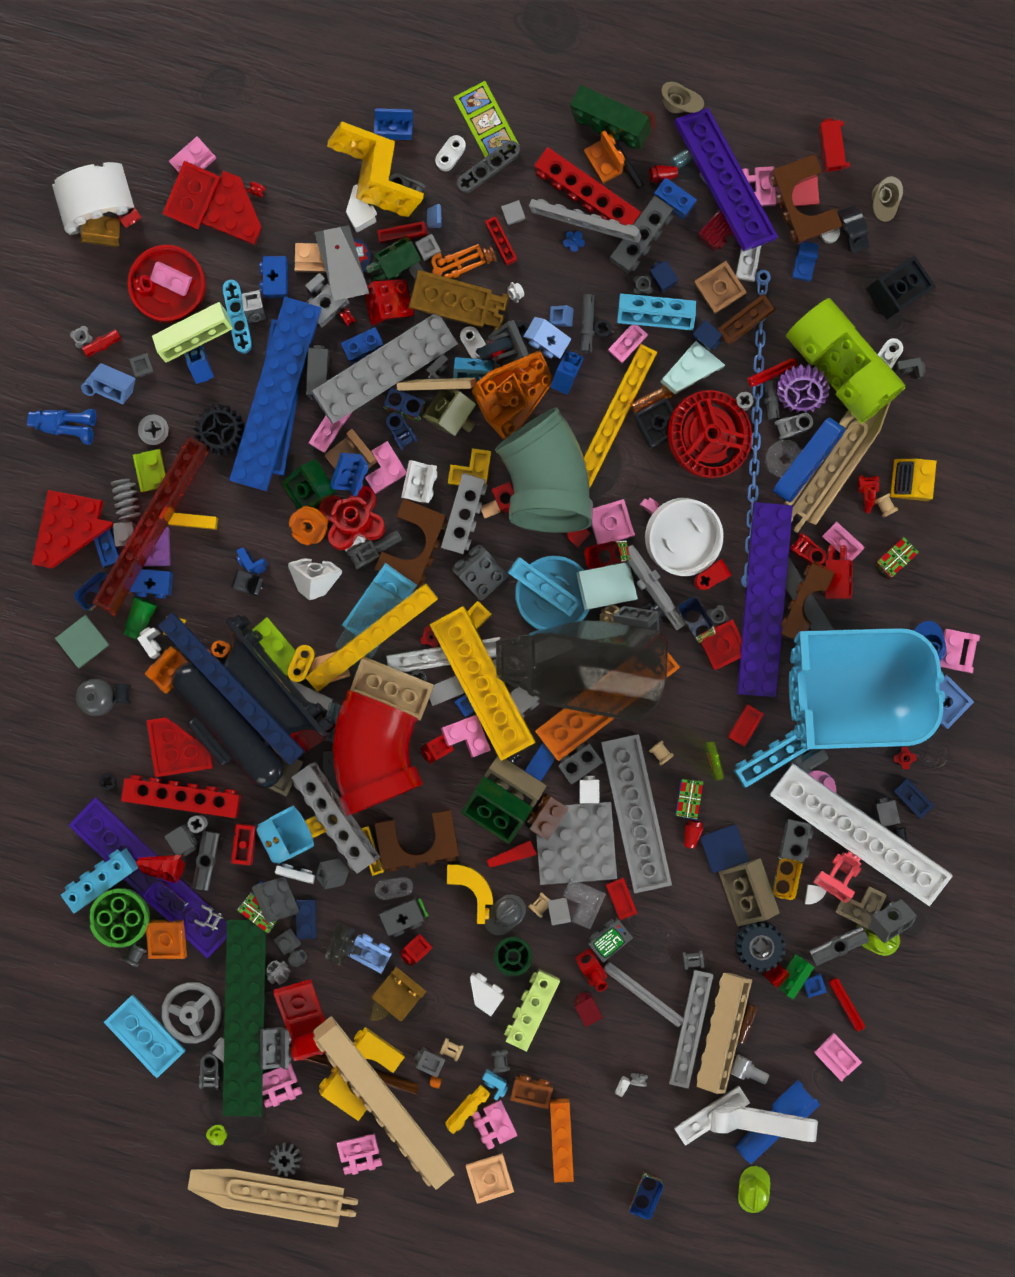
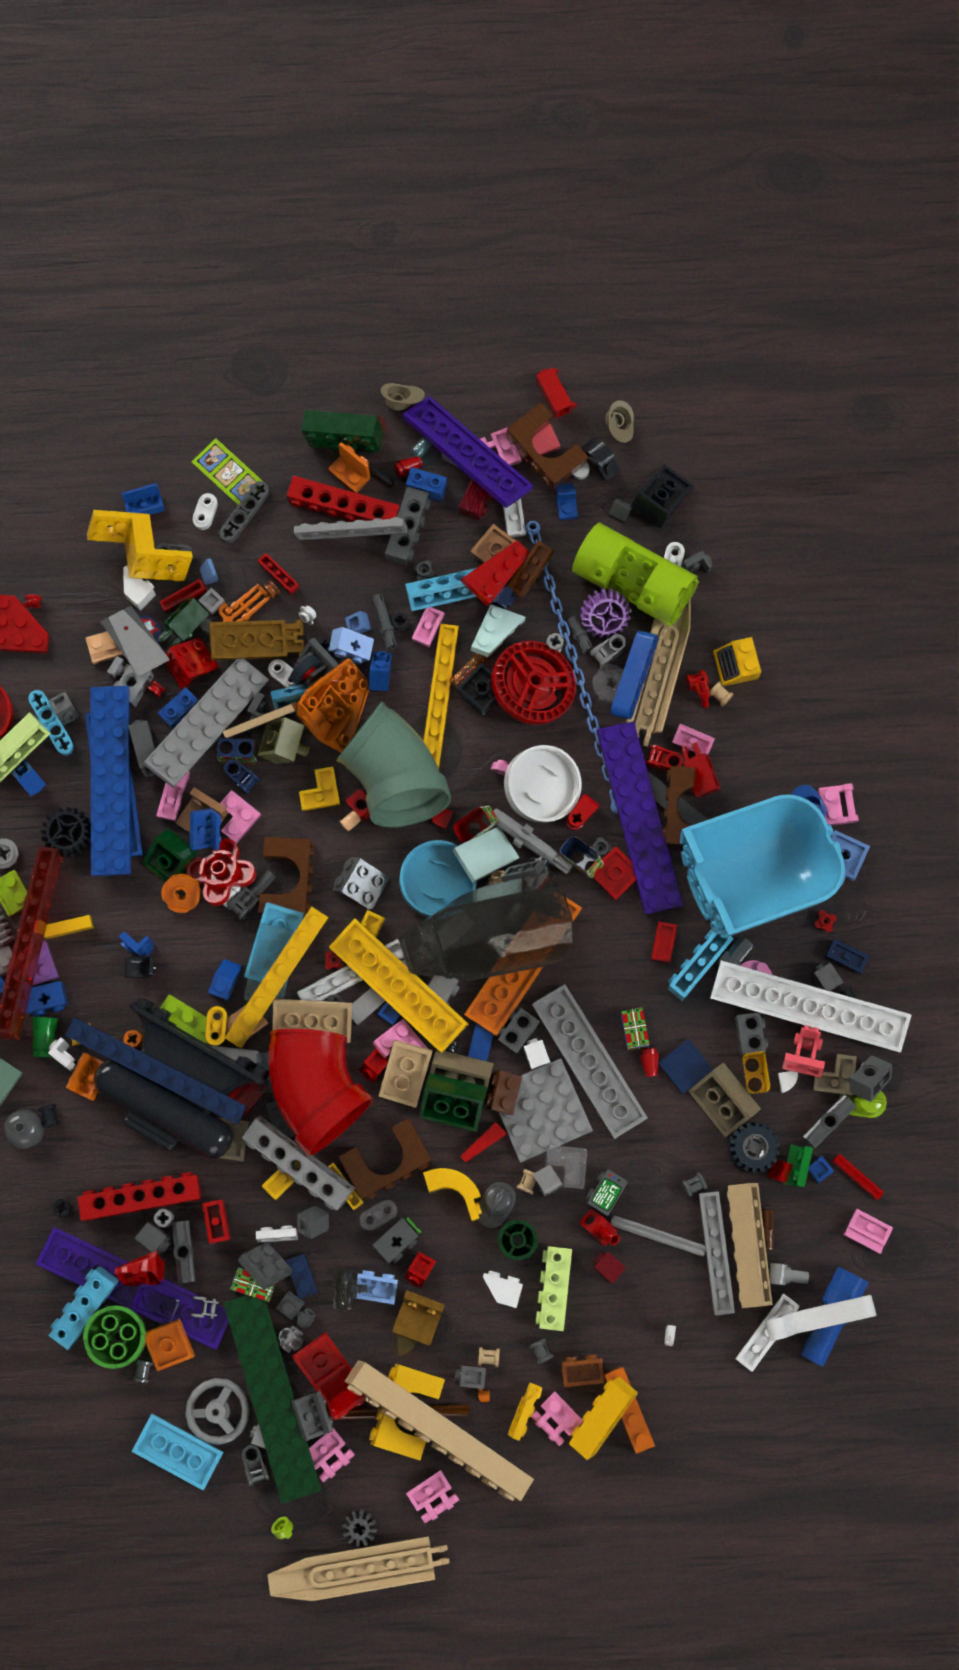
camera: 25 degrees left, 10 degrees down
(175, 749) = (119, 1152): red plate -> none
(274, 265) = (75, 664): blue brick -> none
(285, 835) = (254, 1198): medium azure piece -> none
(313, 578) = (202, 942): white slope -> none
(323, 621) = (225, 980): none -> blue slope
(419, 482) = (274, 817): white bracket -> none
(450, 540) = (322, 801): light grey brick -> none
(461, 767) = (405, 1073): none -> tan plate
(489, 1178) = (571, 1475): light nougat plate -> none
(494, 1080) = (541, 1373): medium azure bracket -> none
(513, 213) = (281, 545): light grey tile -> none
(535, 1141) = (603, 1417): none -> yellow brick
(544, 586) = (426, 873): medium azure plate -> none
(574, 241) = (347, 552): blue plant -> none
(611, 522) = (470, 793): bright pink plate -> none
(621, 898) = (603, 1149): red tile -> none
(638, 1080) = (682, 1323): light grey bush -> none
(647, 1212) = (724, 1435): blue piece -> none
(661, 752) = (592, 994): tan bush -> none
(663, 276) = (440, 556): dark blue brick -> none
(706, 315) = (493, 574): none -> red wing
(713, 760) = (645, 983): clear neon green tile -> none
(754, 1189) = (835, 1393): lime piece -> none
(772, 372) = (572, 608): red axle -> none
(855, 287) = (620, 510): none -> dark grey slope
(896, 558) = (748, 738): piece -> none

